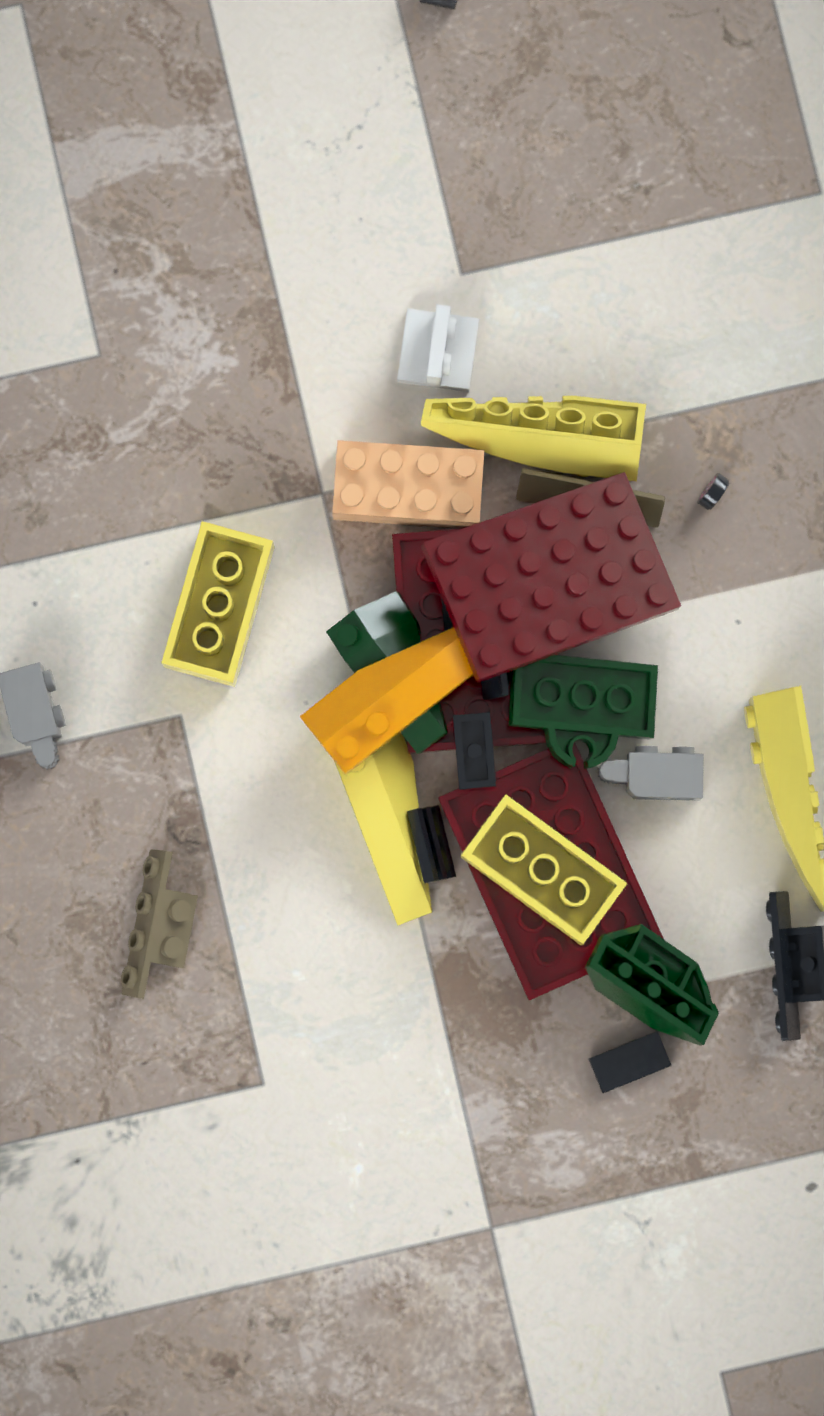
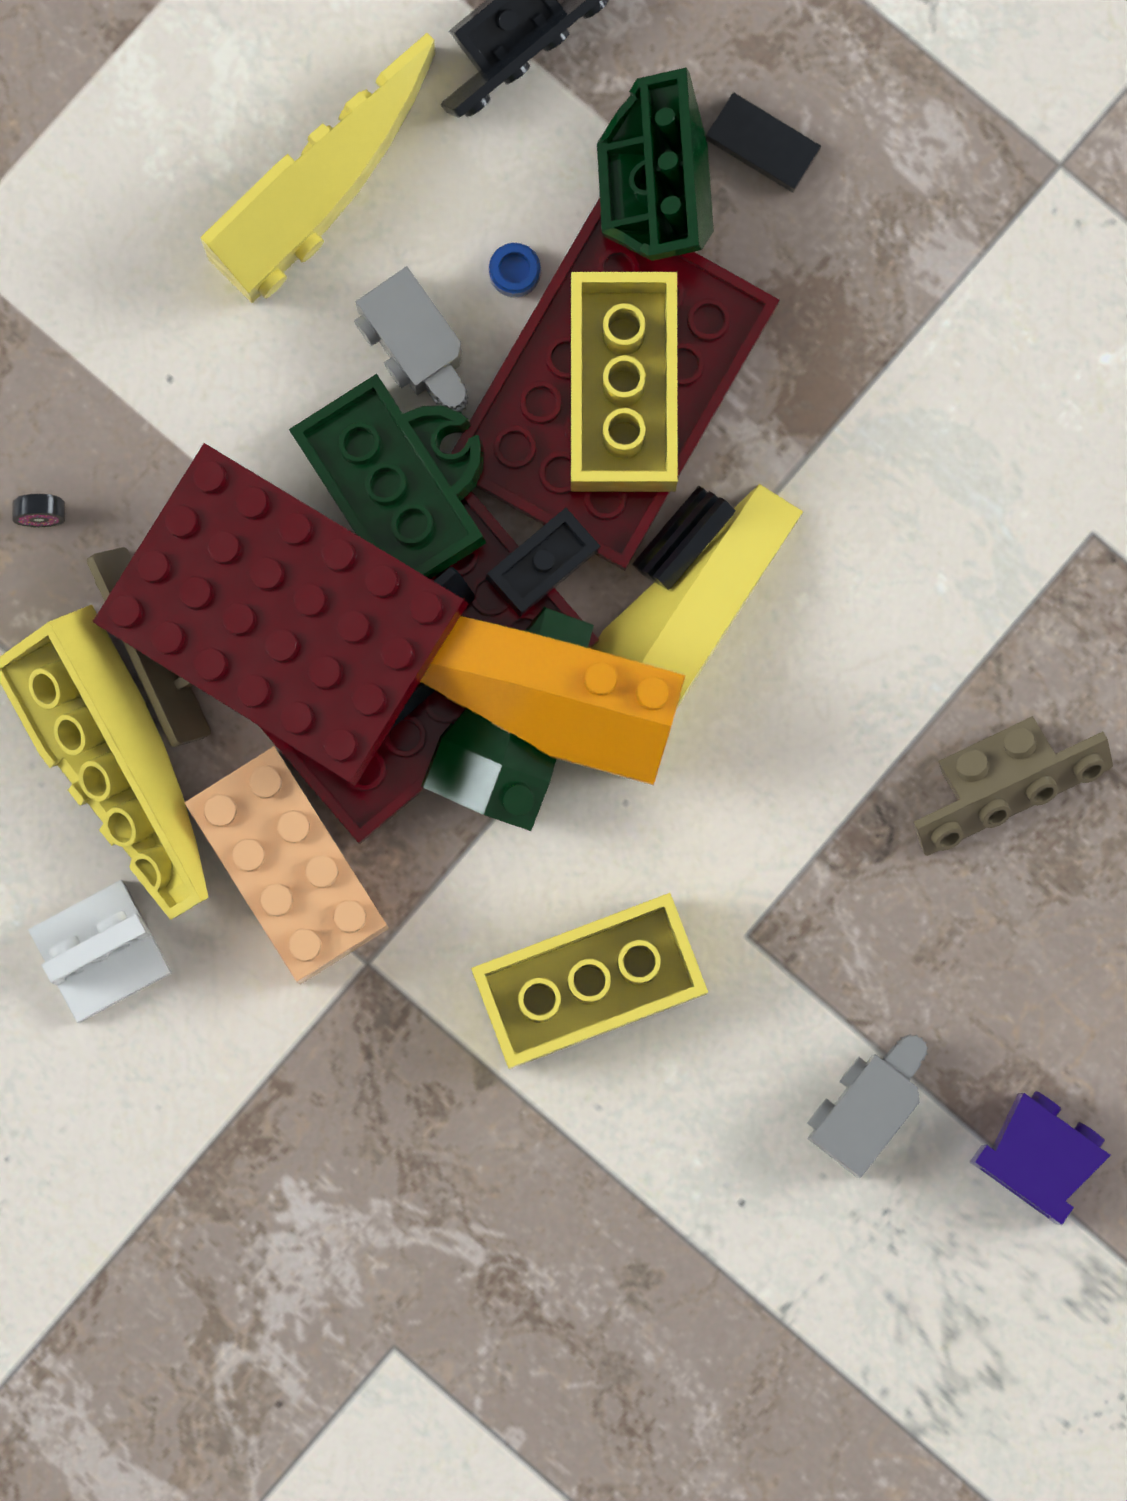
camera: 125 degrees left, 0 degrees up
(658, 863) = (514, 269): none -> blue tile

